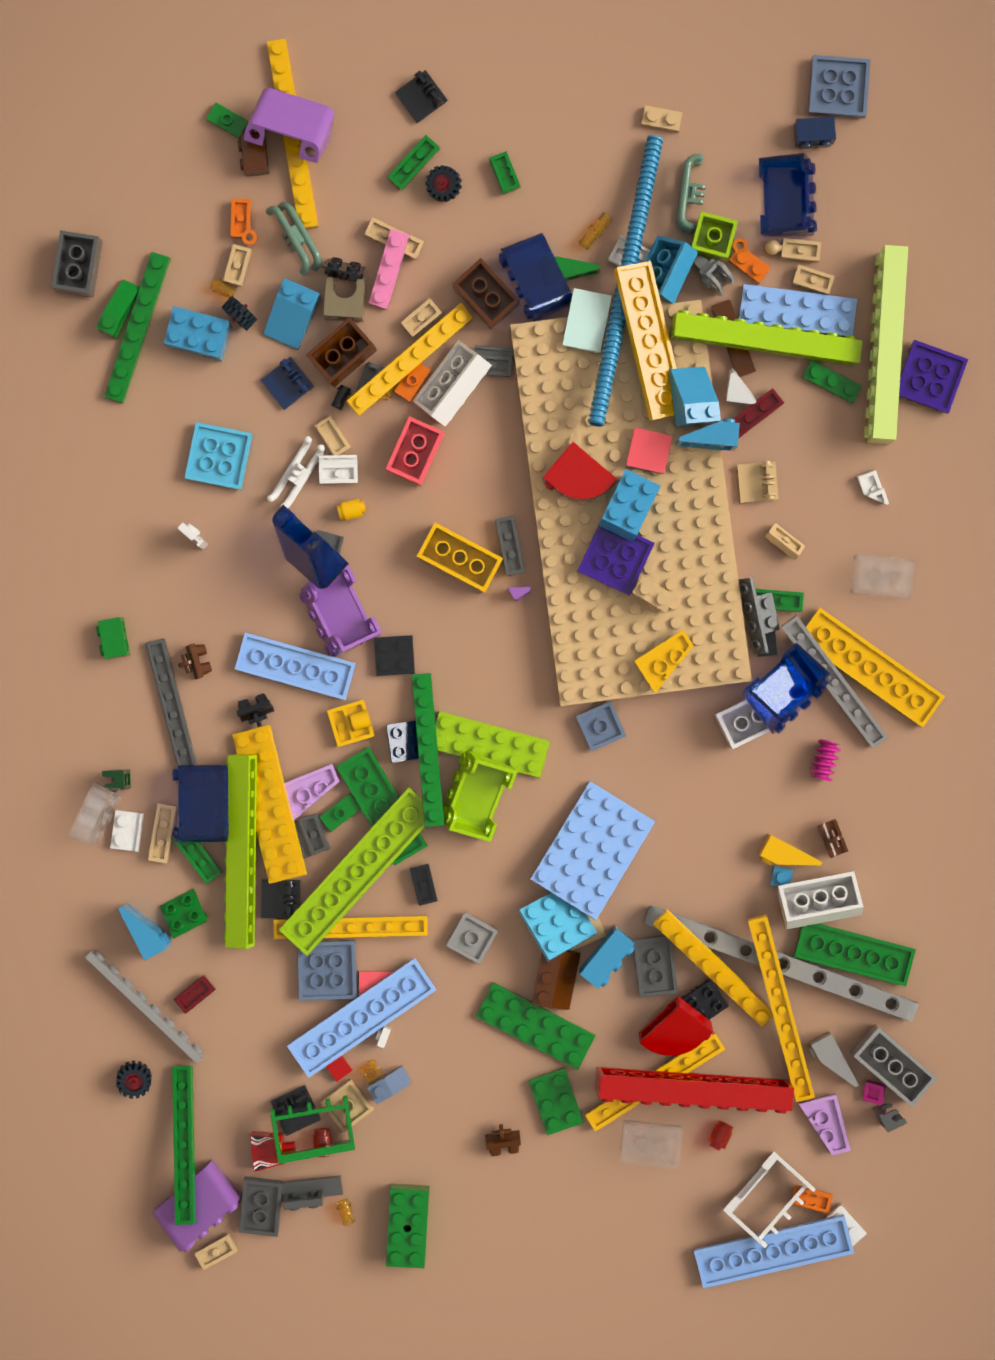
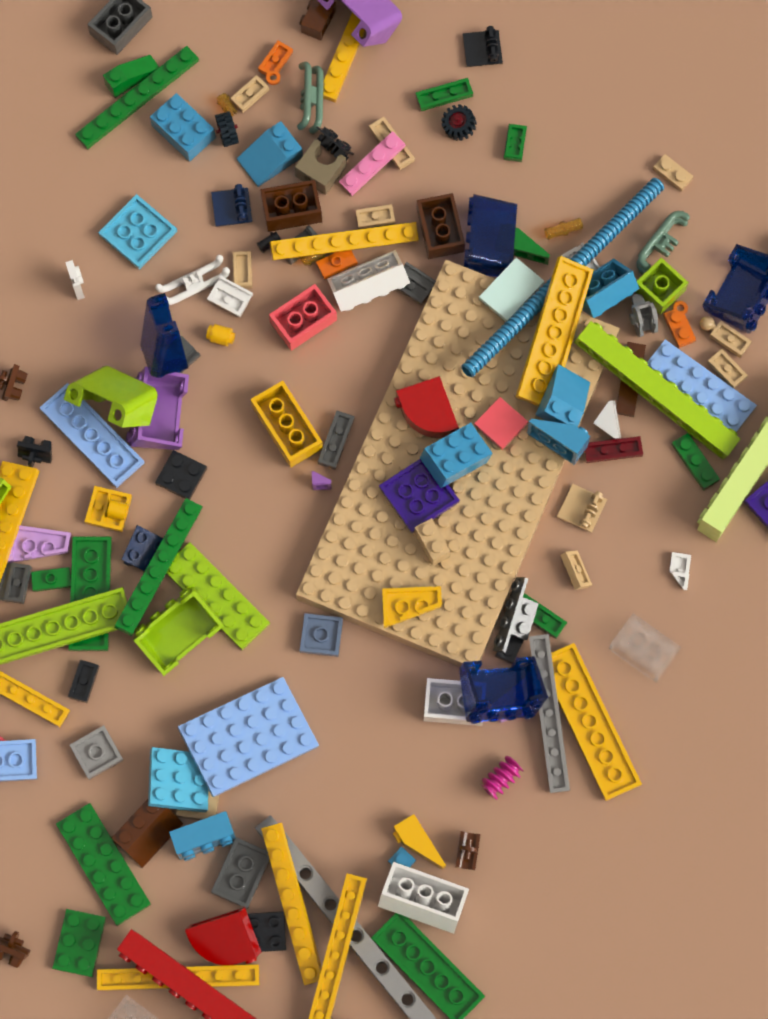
camera: 25 degrees right, 15 degrees down
(299, 618) = (127, 394): none -> lime windscreen

